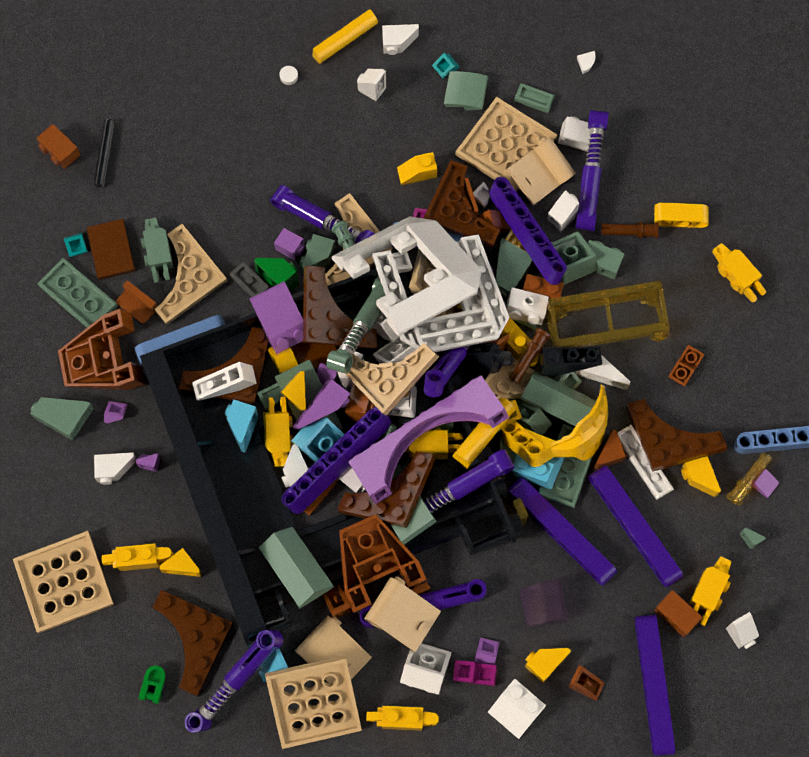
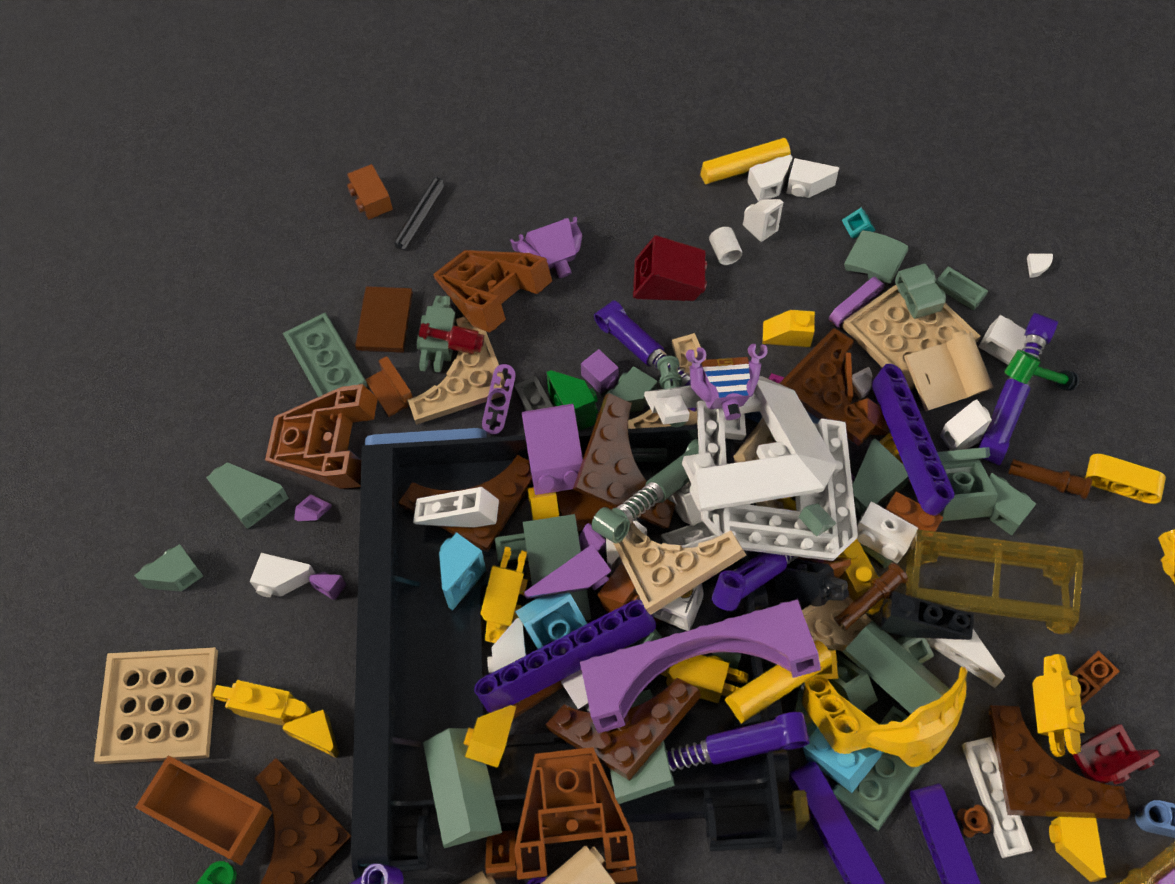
camera: 20 degrees right, 10 degrees down
(33, 488) = (170, 572): none -> sand green slope
(75, 244) = (345, 302): teal slope -> none
(128, 637) = (204, 809): none -> dark orange piece
(177, 251) = (458, 338): none -> dark red piece
(178, 194) = (485, 279): none -> dark orange wedge
(215, 284) = (508, 383): none -> medium lavender beam
(219, 152) = (555, 242): none -> medium lavender torso
(288, 75) = (665, 186): white tile -> none
(295, 391) = (542, 547): yellow slope -> none
(304, 529) = (489, 736): none -> yellow slope
(315, 148) = (669, 271): none -> dark red slope
(351, 114) = (725, 245): none -> white piece
(367, 46) = (769, 178): none -> white slope
(388, 235) = (725, 381): none -> torso
(461, 132) = (856, 301): none -> medium lavender beam
(478, 314) = (816, 519): none -> sand green slope
(505, 112) = (920, 291): none -> sand green brick
(565, 232) = (964, 454): none -> sand green tile
(593, 154) = (1025, 365): none -> green piece
(611, 453) = (954, 768): dark orange slope -> none
(634, 476) = (977, 813): none -> dark orange plate
(669, 390) = (1059, 706): none -> yellow hinge
(709, 413) = (1112, 756): none -> dark red bracket

